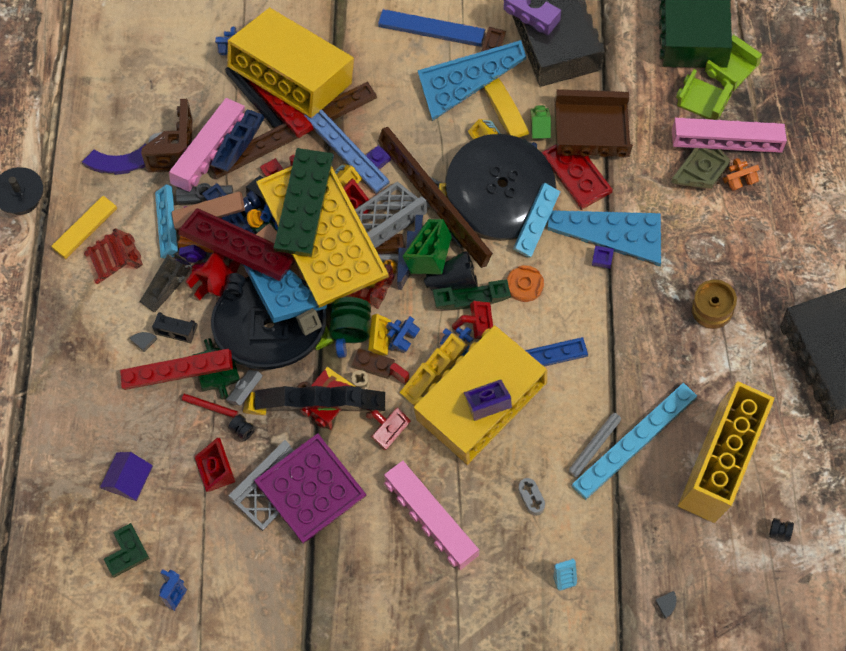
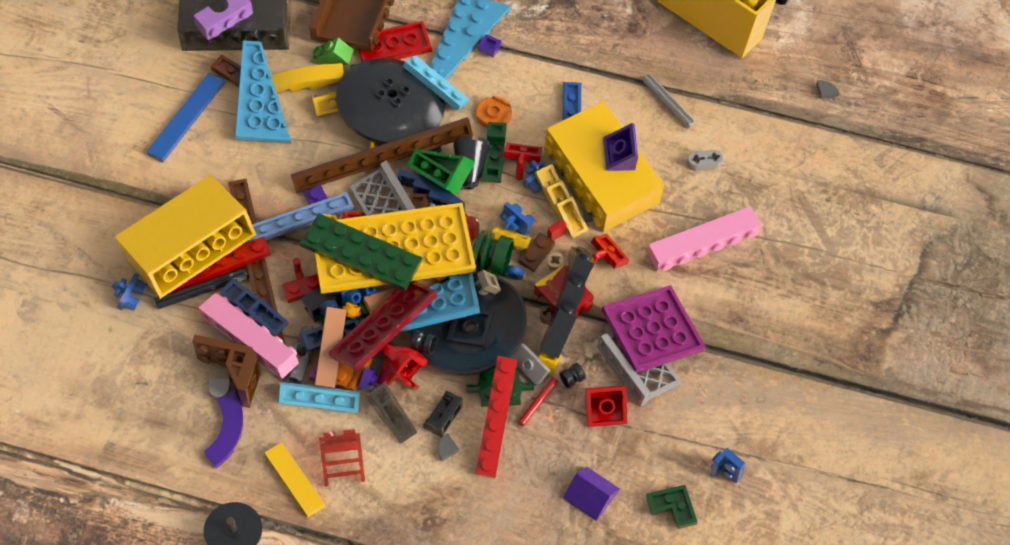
camera: 80 degrees left, 5 degrees down
(565, 574) = (786, 150): medium azure slope -> none
(634, 441) = (673, 73): medium azure plate -> none

